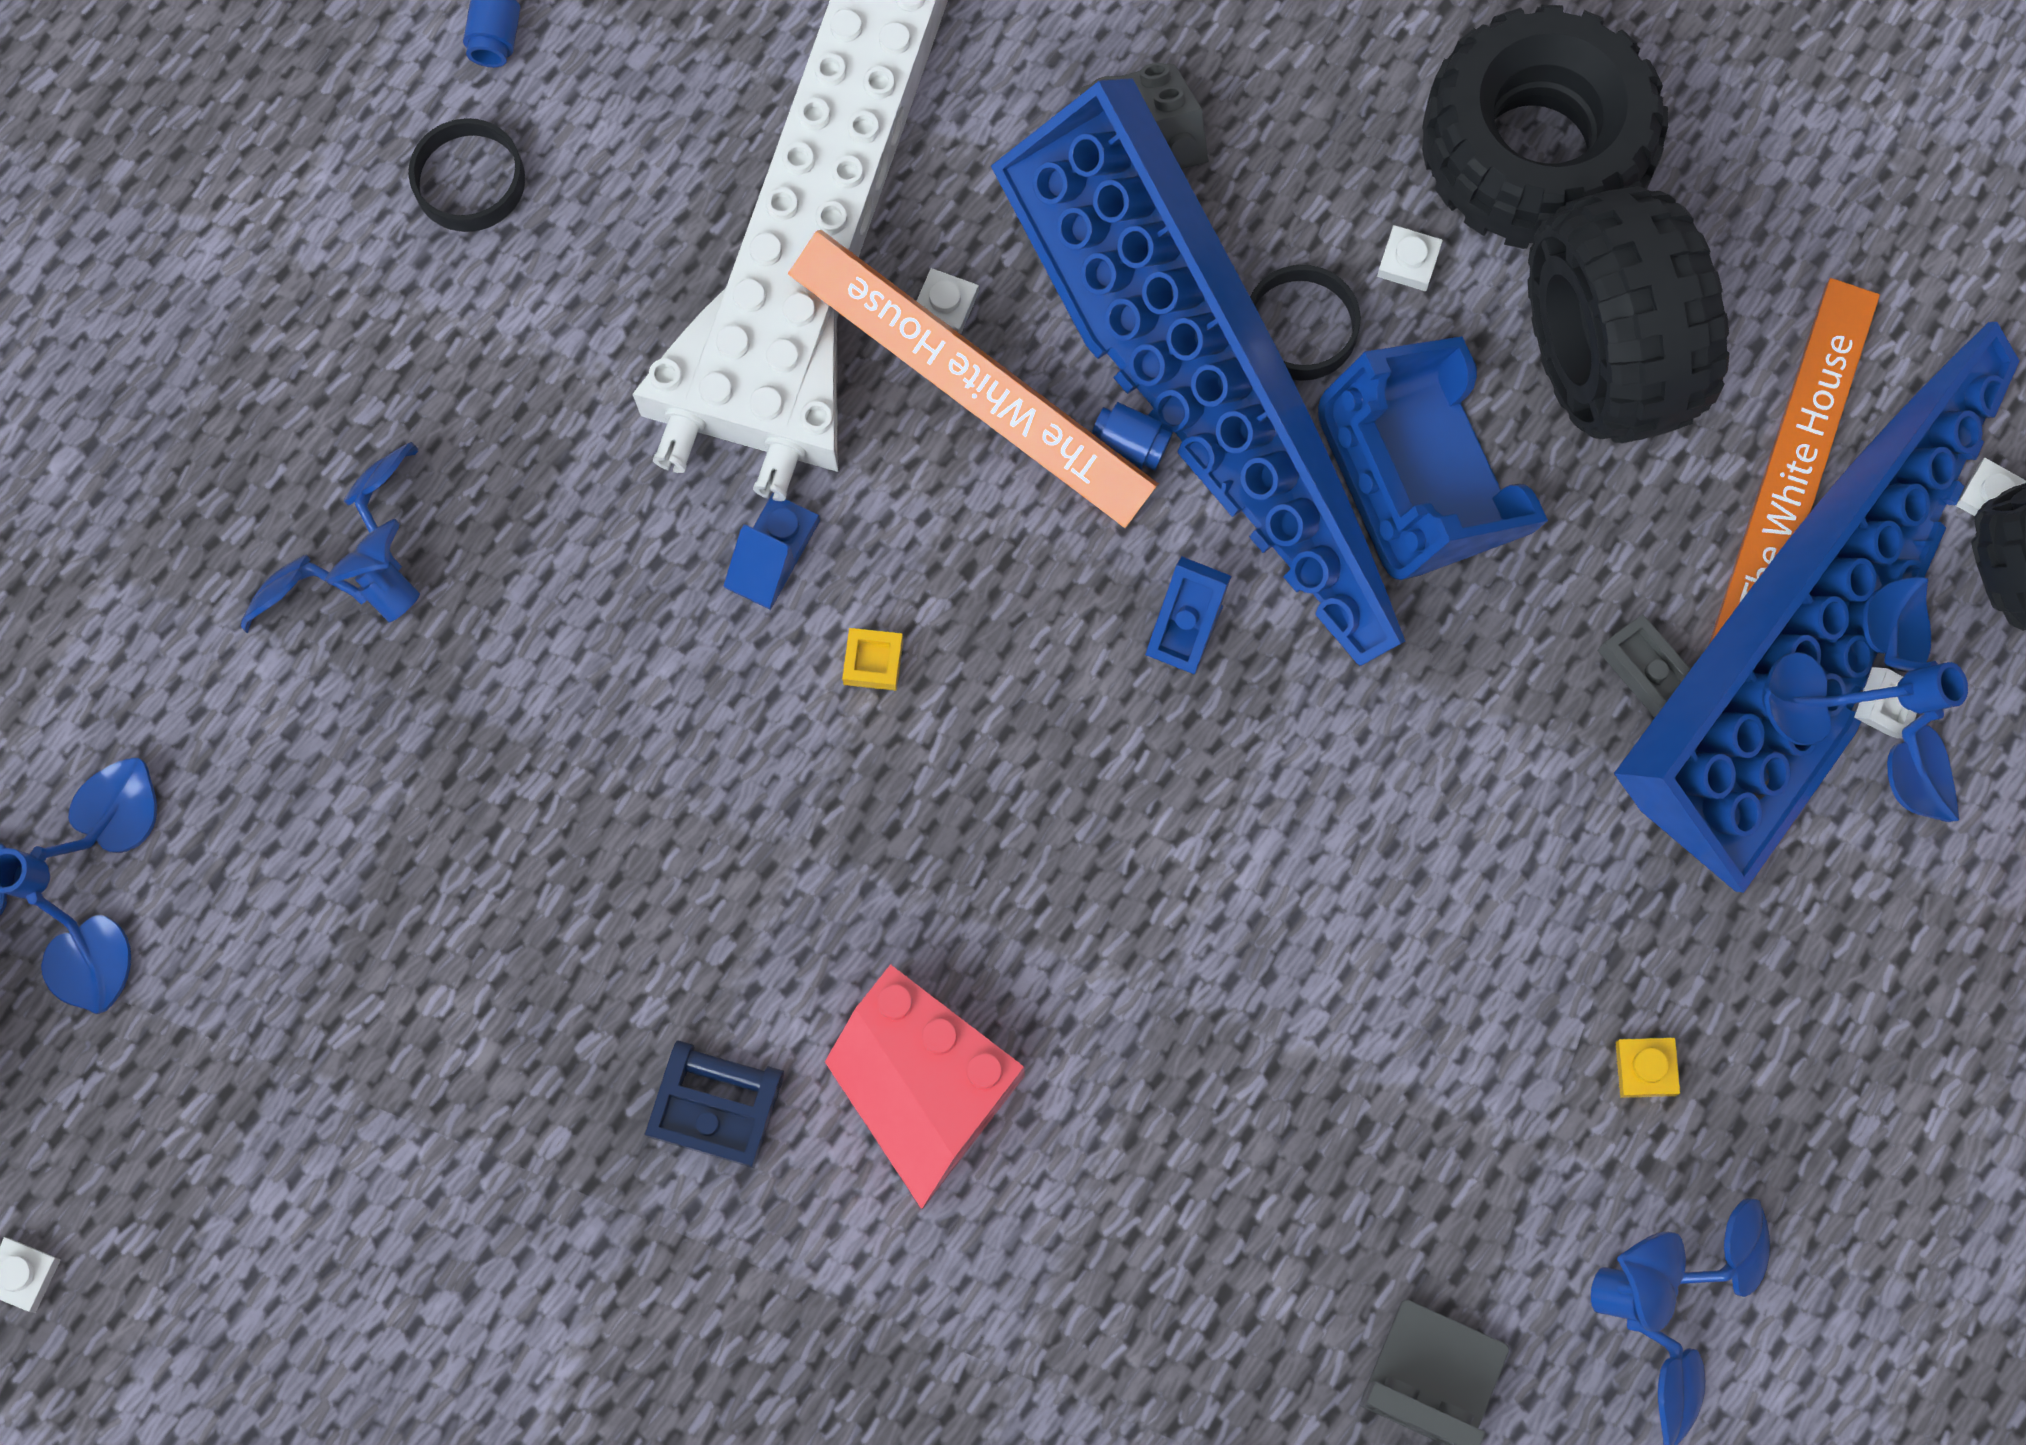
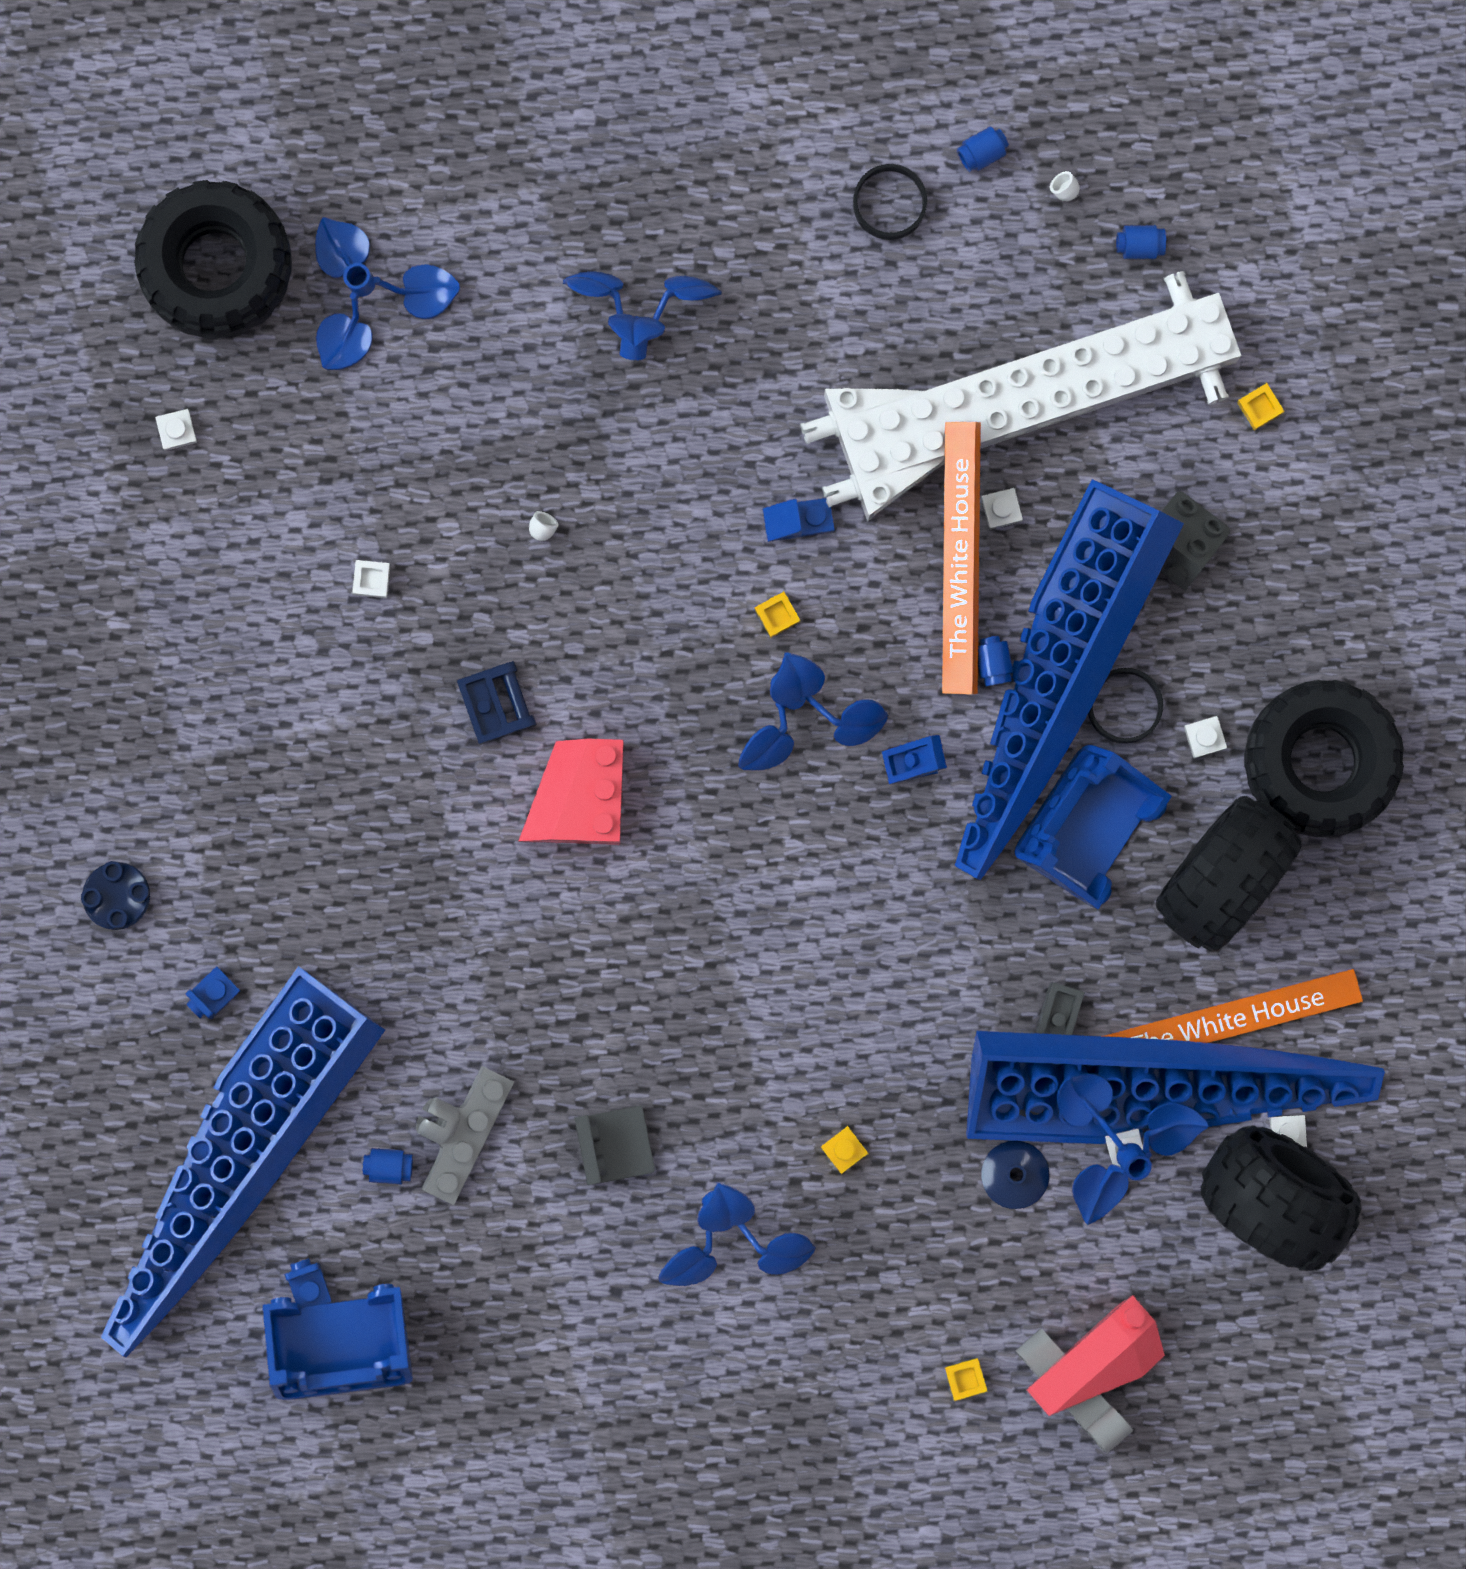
camera: 45 degrees right, 10 degrees up
(423, 1153) = (371, 579): none -> white plate
(530, 875) = (542, 526): none -> white hinge
(984, 665) = (790, 689): none -> blue plant
(1807, 885) = (997, 1180): none -> dark blue dish

